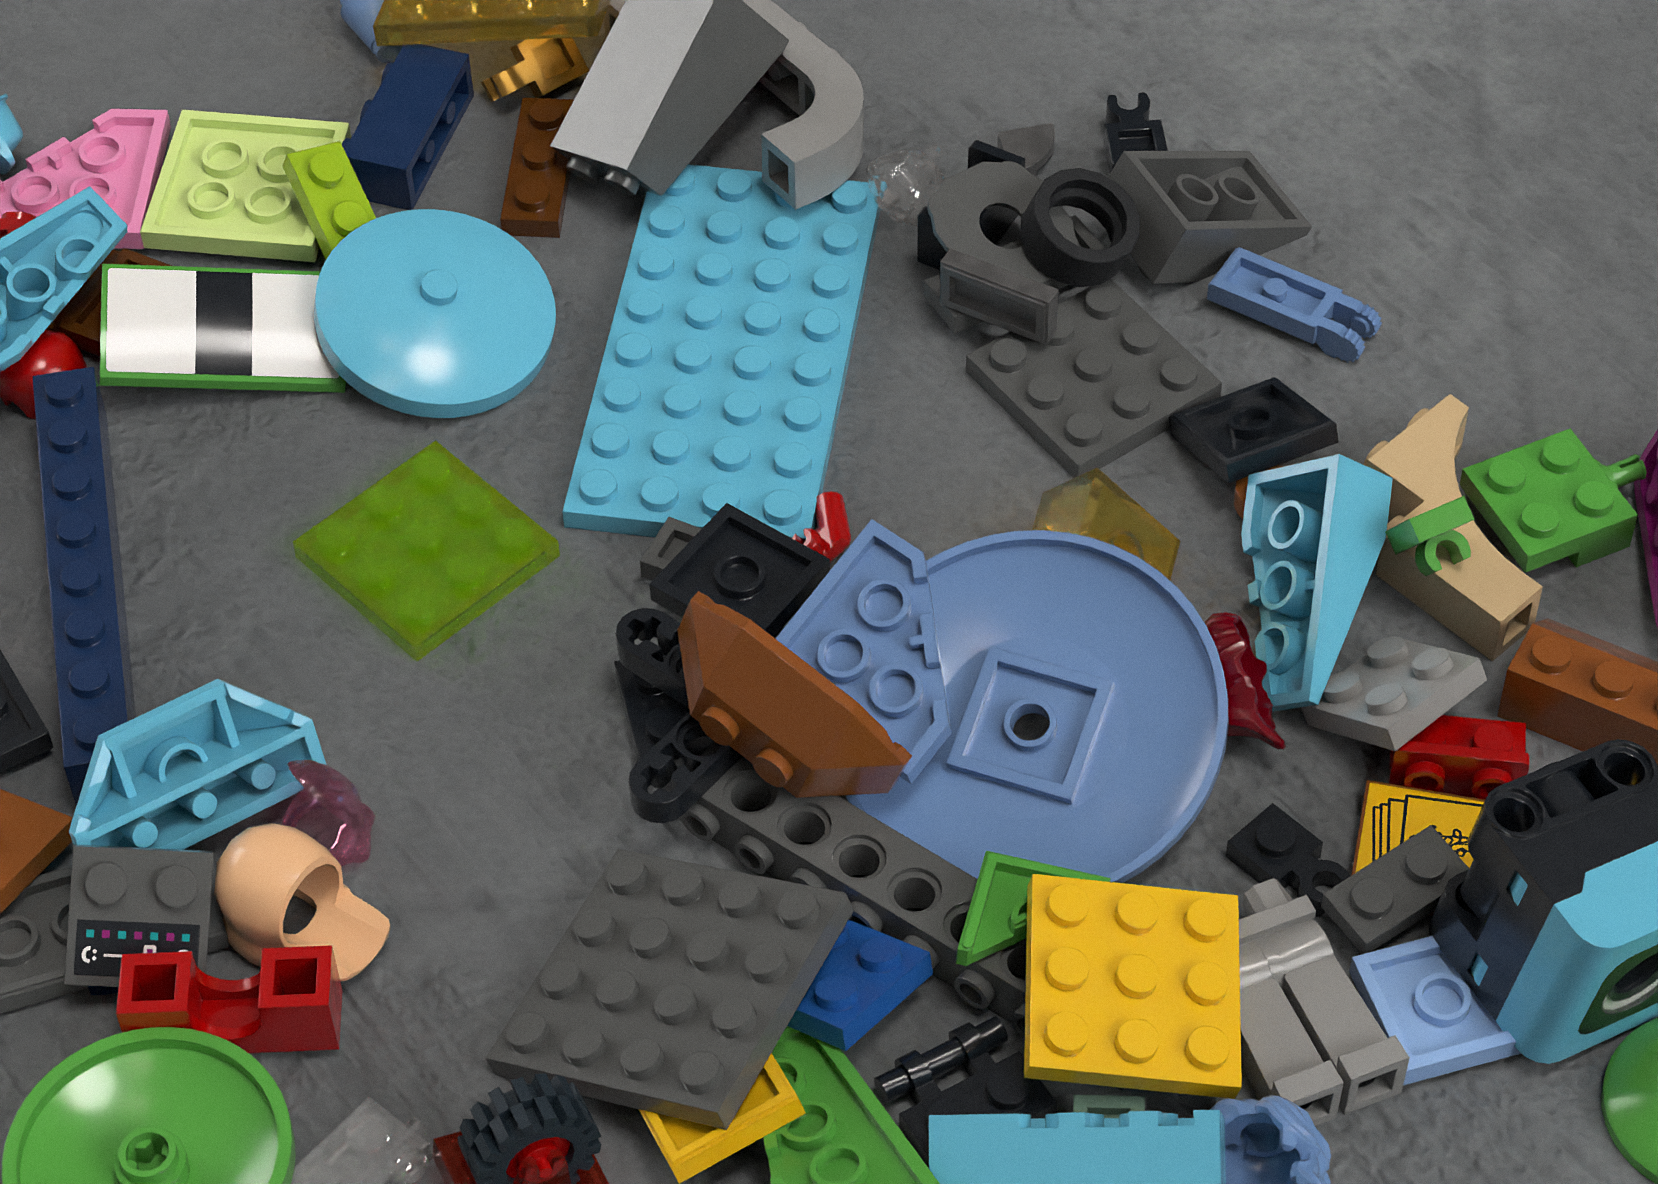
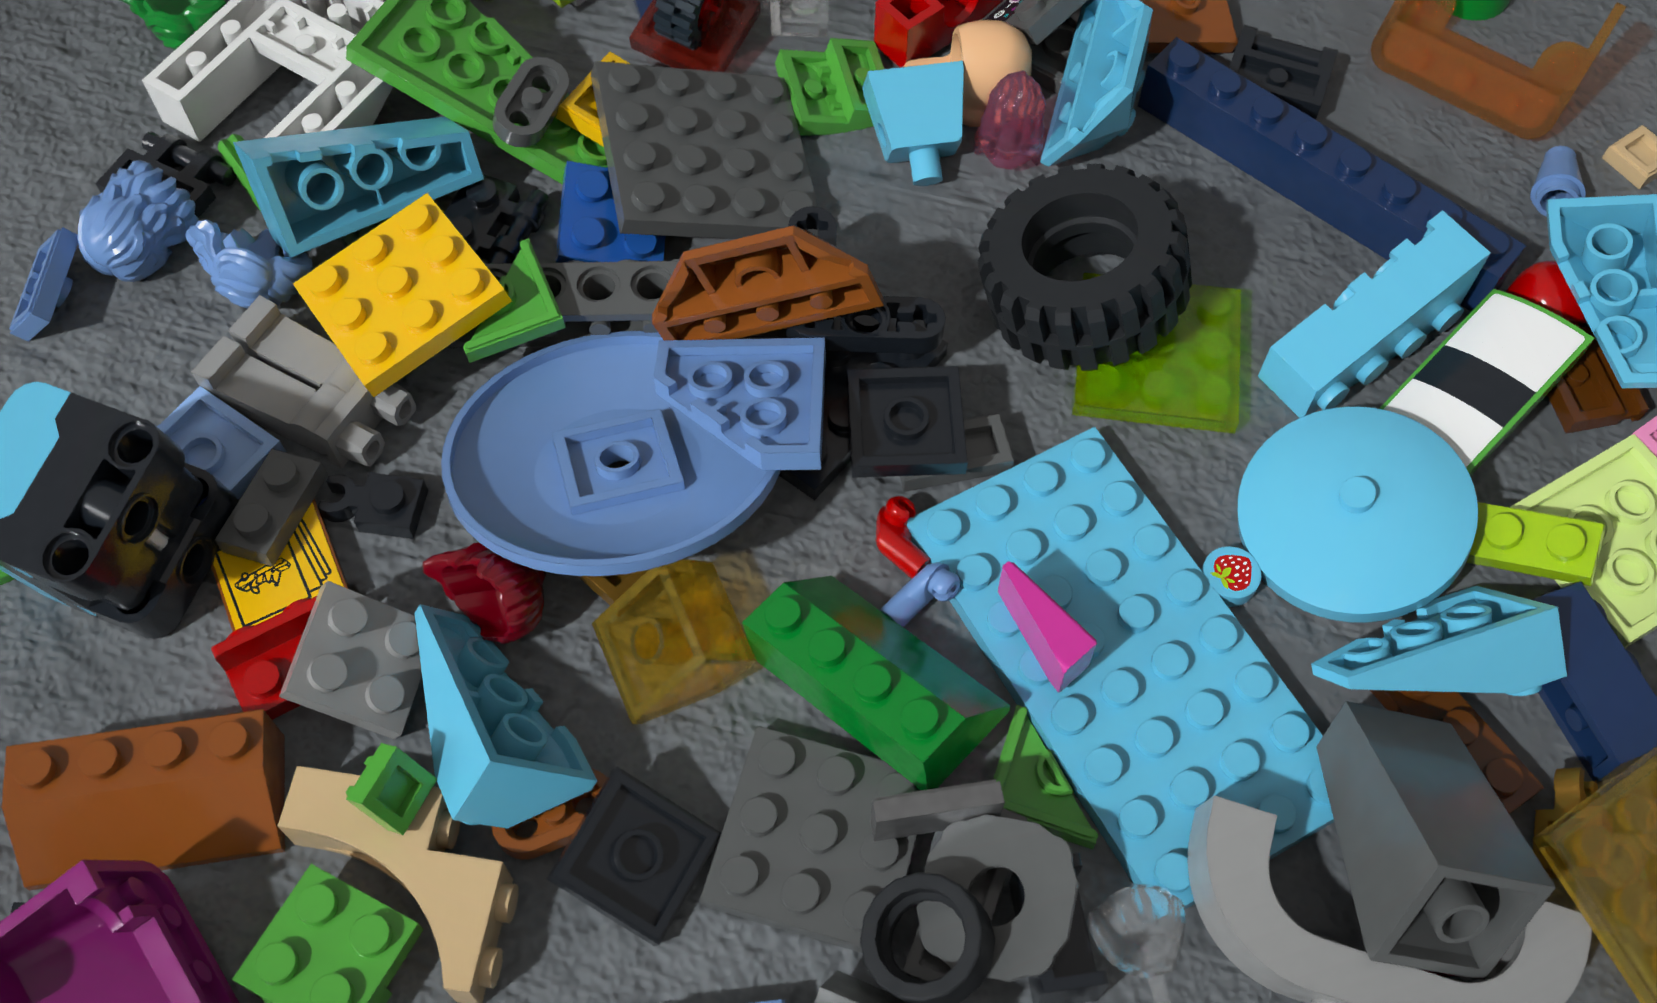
camera: 140 degrees right, 10 degrees up
(225, 424) = (1376, 319): none -> medium azure wedge
(402, 882) = (917, 115): none -> medium azure torso
(434, 1018) = (829, 85): none -> bright green slope
(453, 518) = (1098, 316): none -> black tyre
(508, 171) = (1457, 644): none -> medium azure wedge
(578, 349) = (1232, 574): none -> tile
(792, 347) = (1052, 634): none -> dark pink slope
(828, 1112) = (528, 105): none -> dark grey plate
(856, 487) = (931, 582): none -> medium blue arm
(891, 317) = (1036, 785): none -> bright green tile
(953, 422) = (873, 678): none -> green slope

